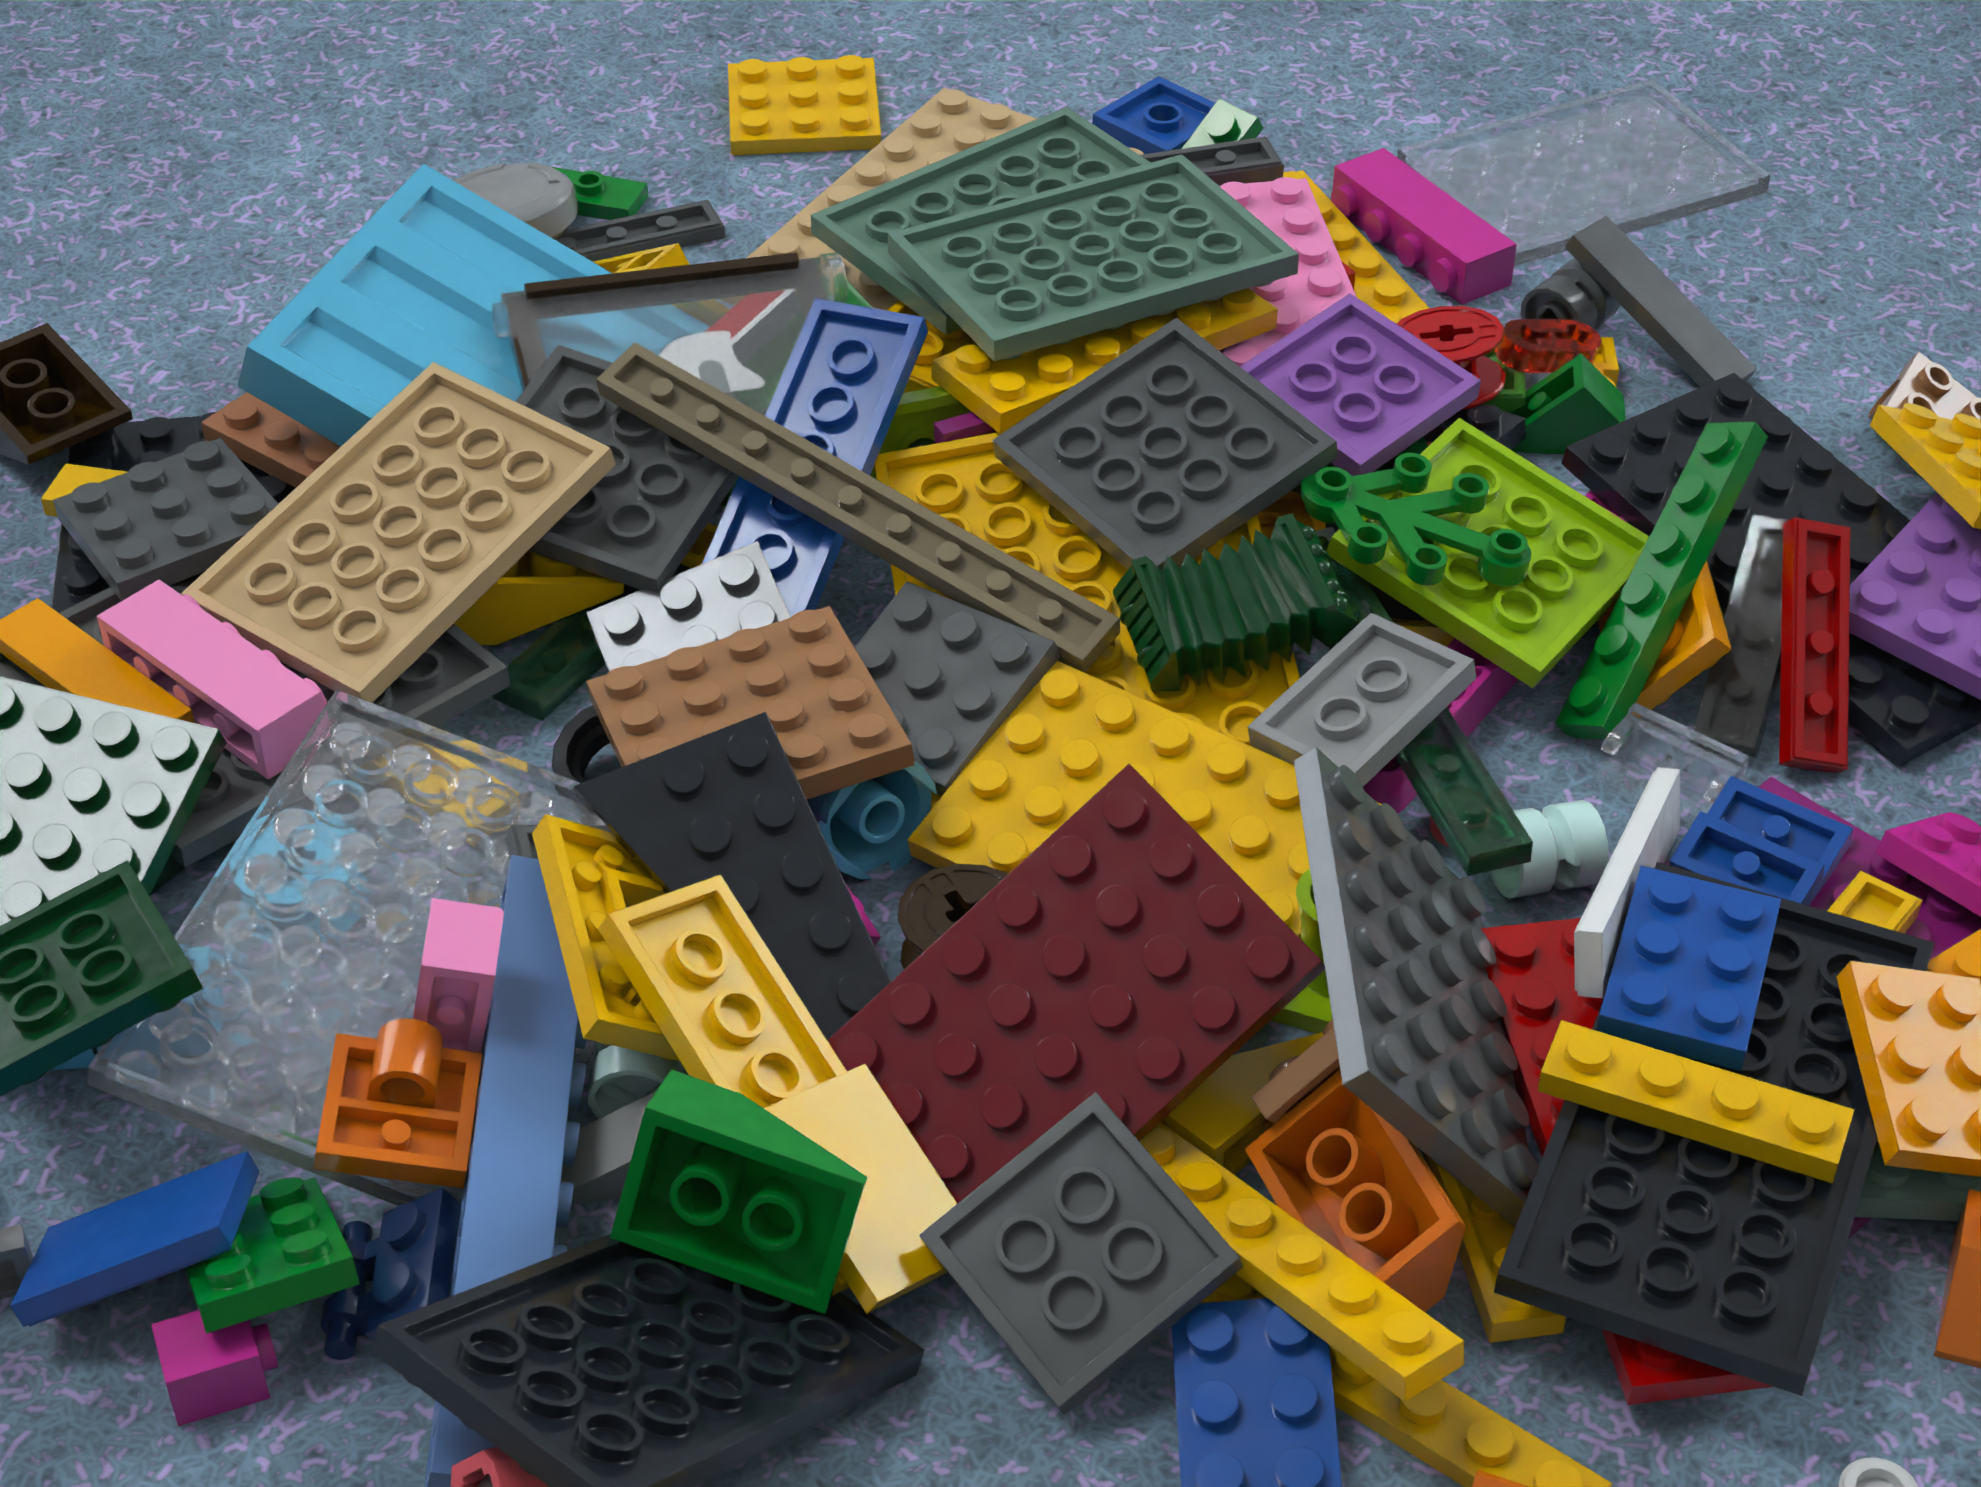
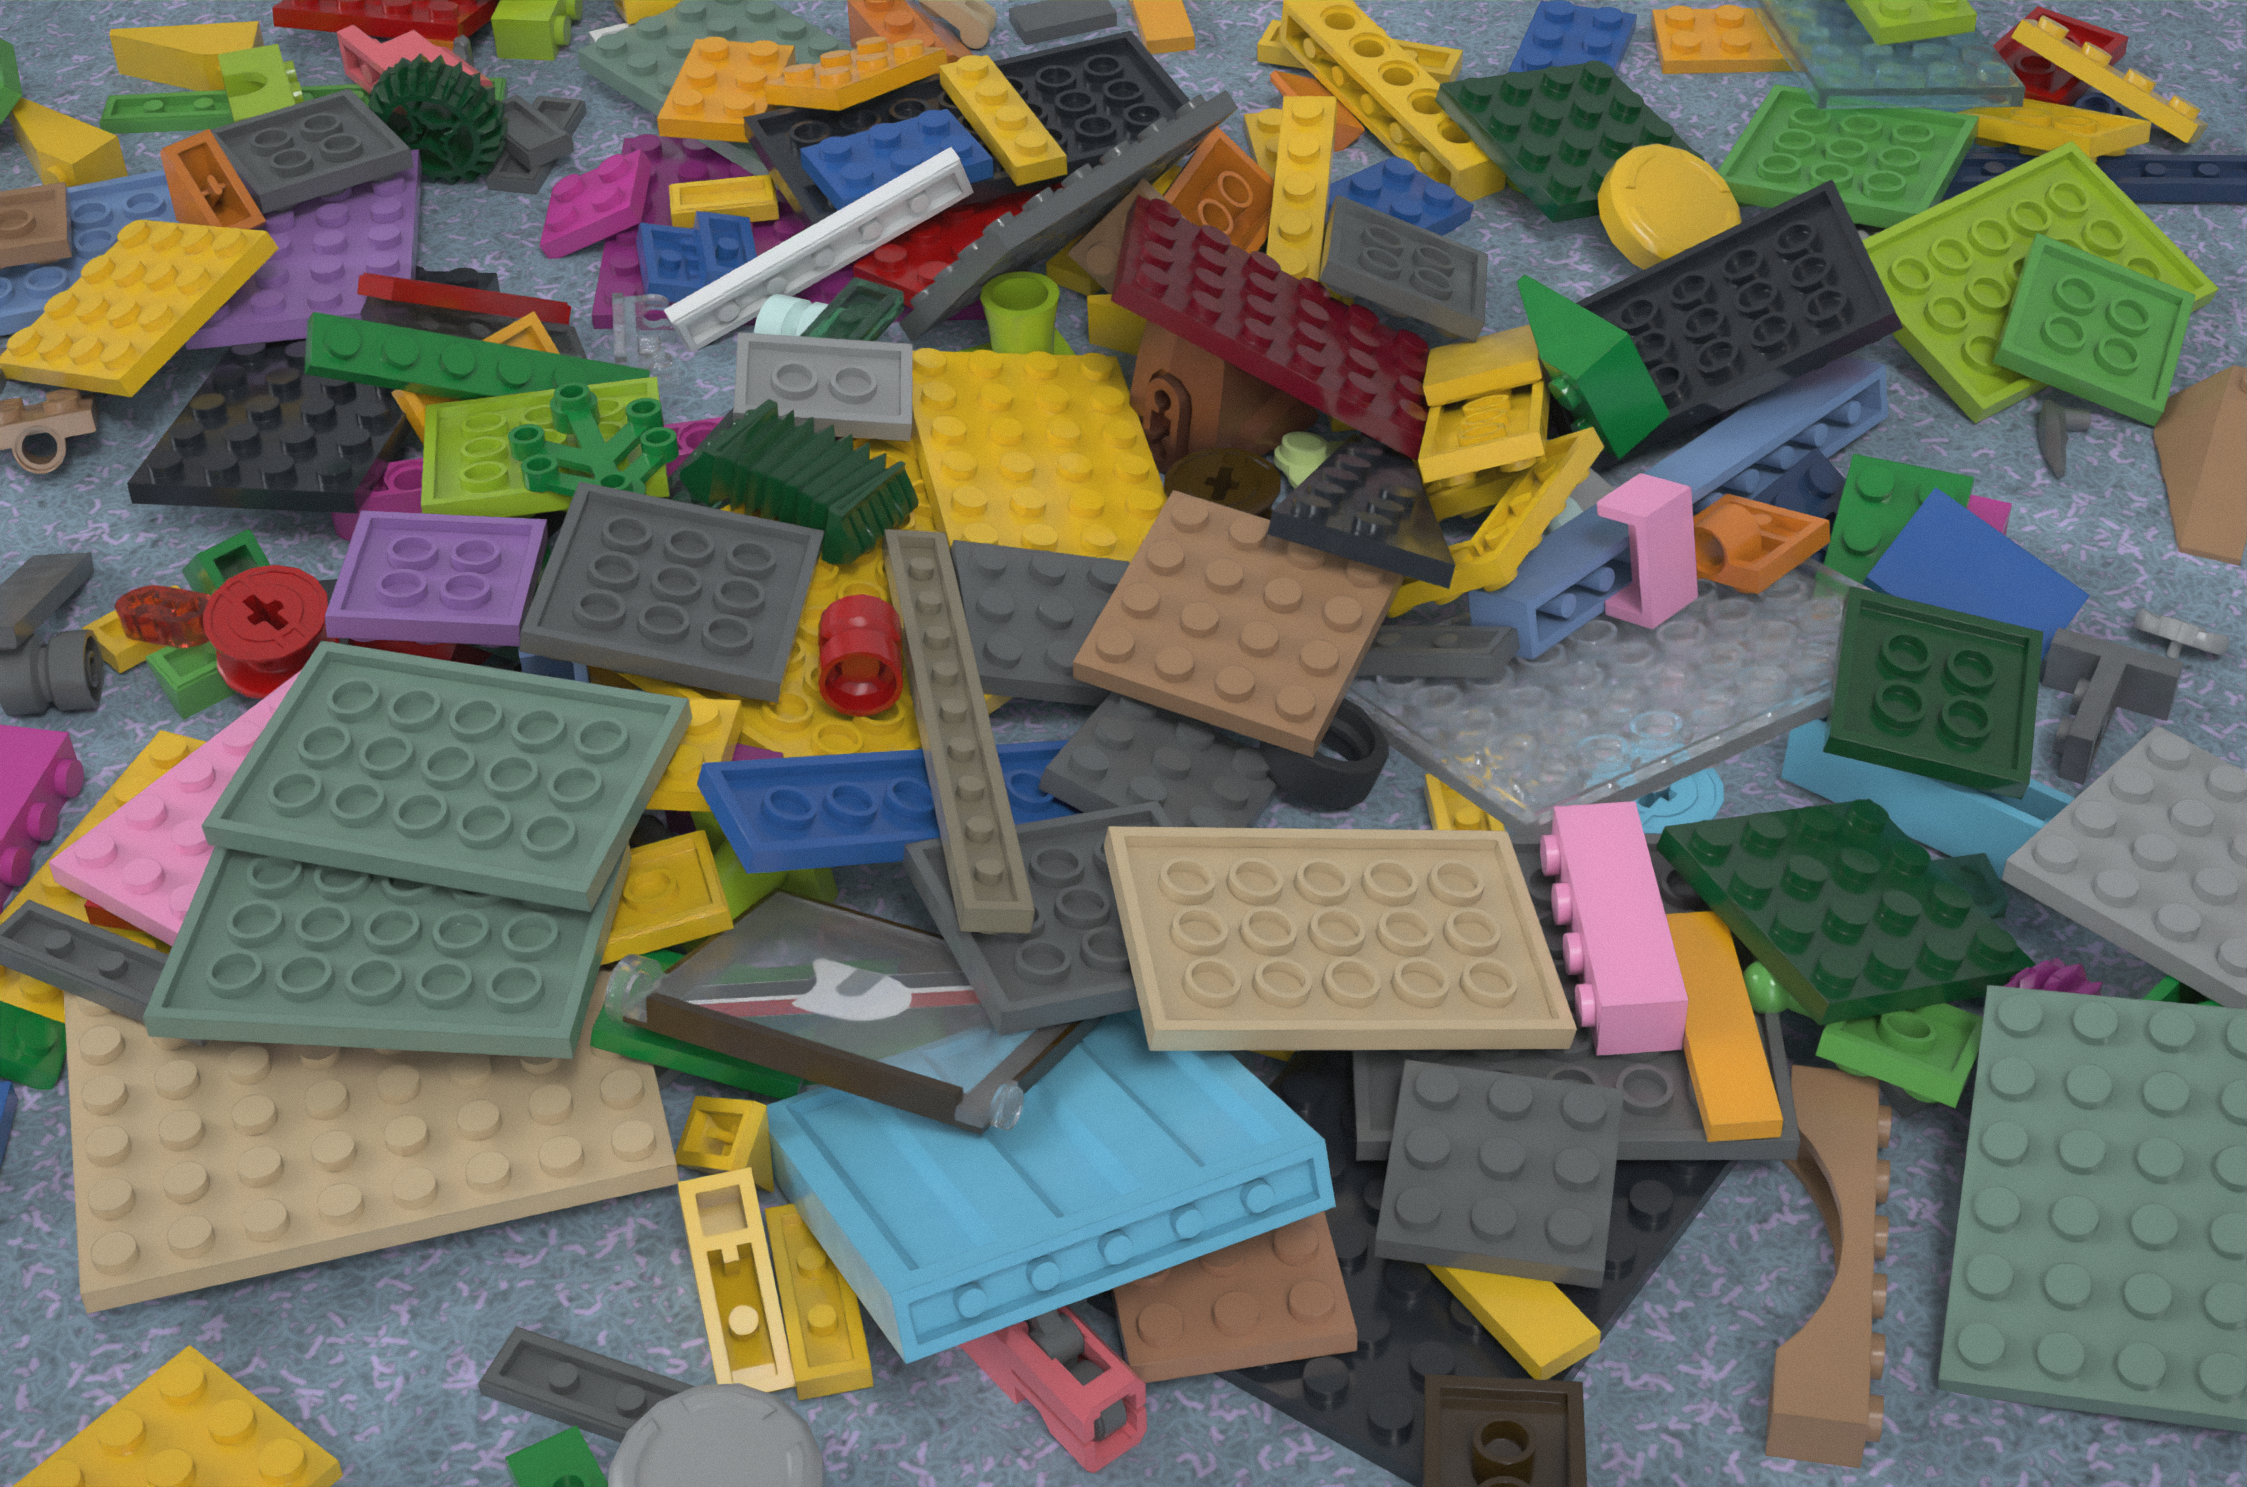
camera: 135 degrees left, 0 degrees up
(979, 499) = (860, 655): none -> red wheel

